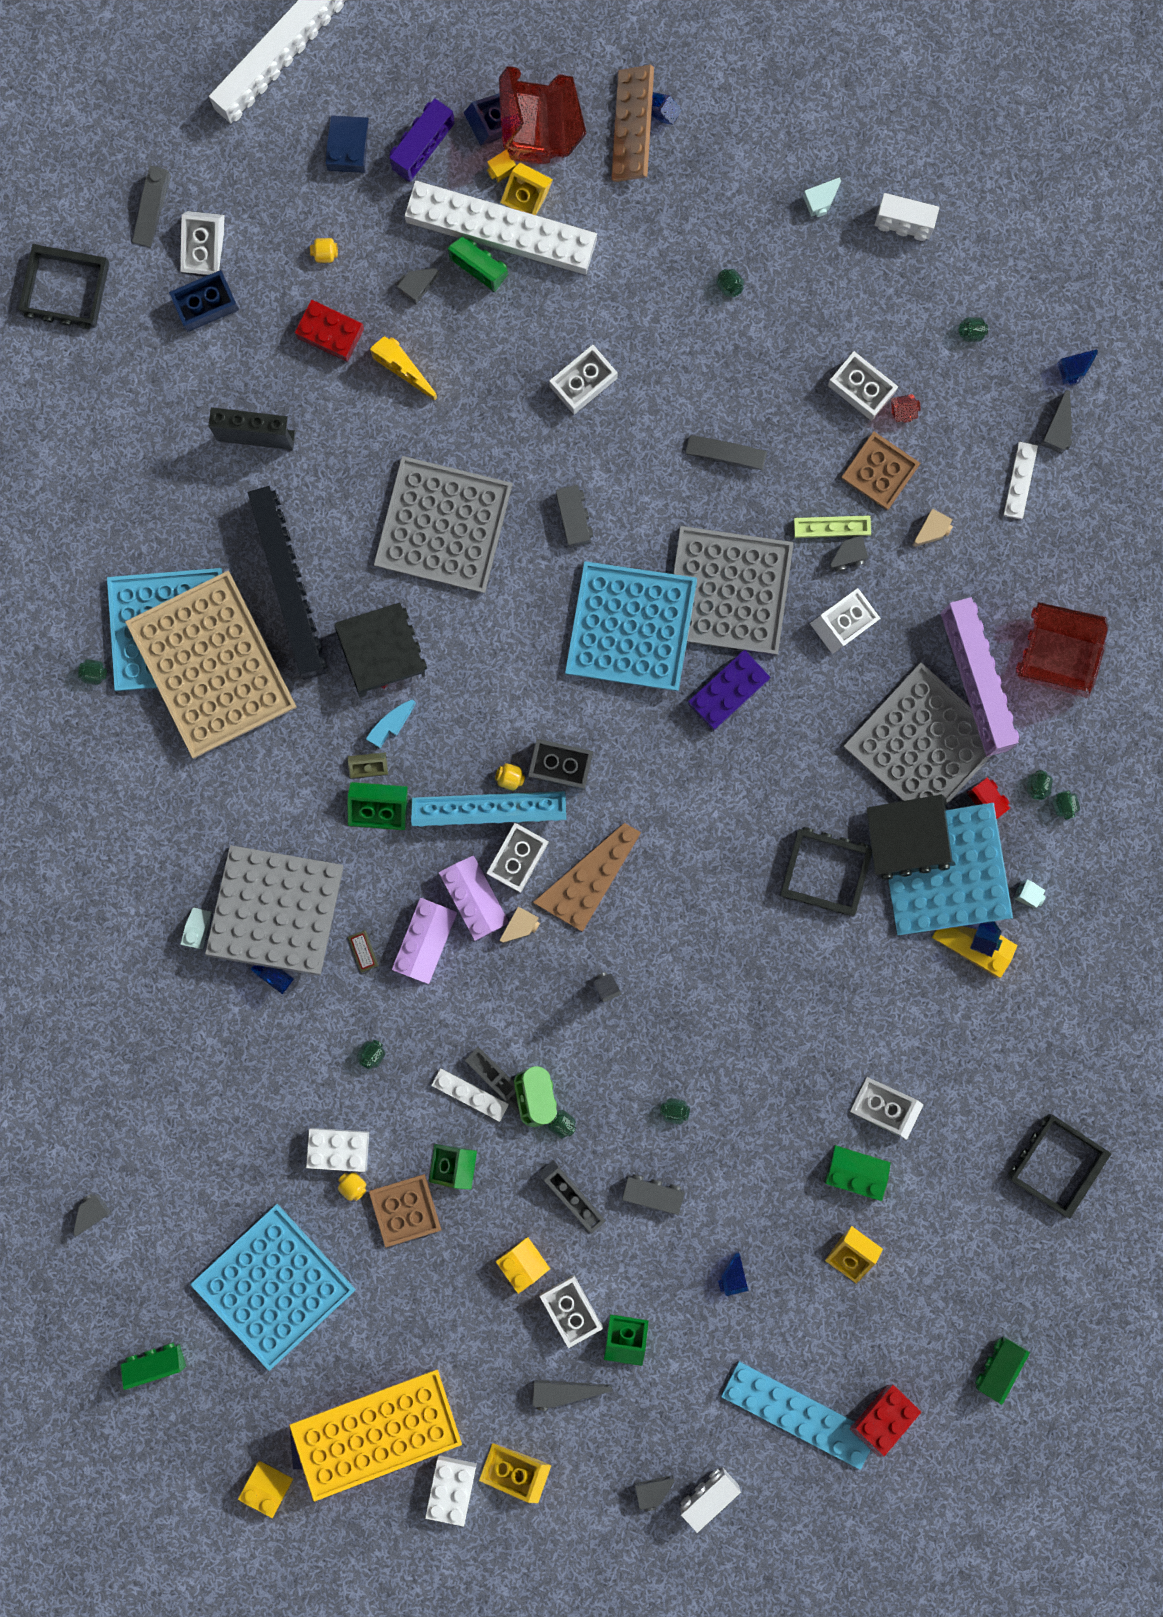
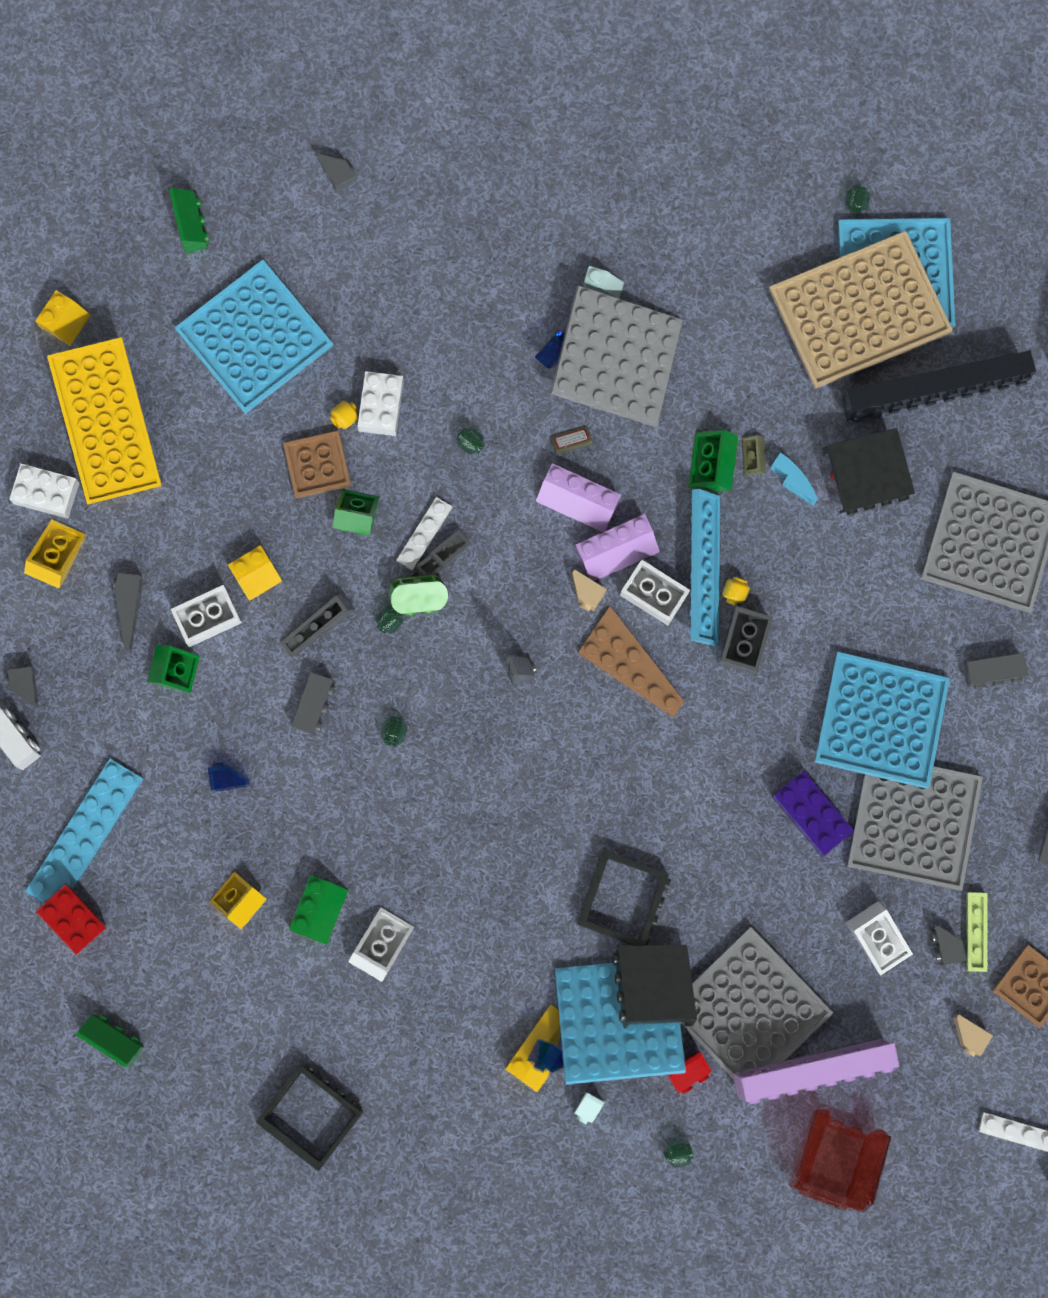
camera: 90 degrees right, 5 degrees down
(1039, 785) = (700, 1127): clear green head -> none

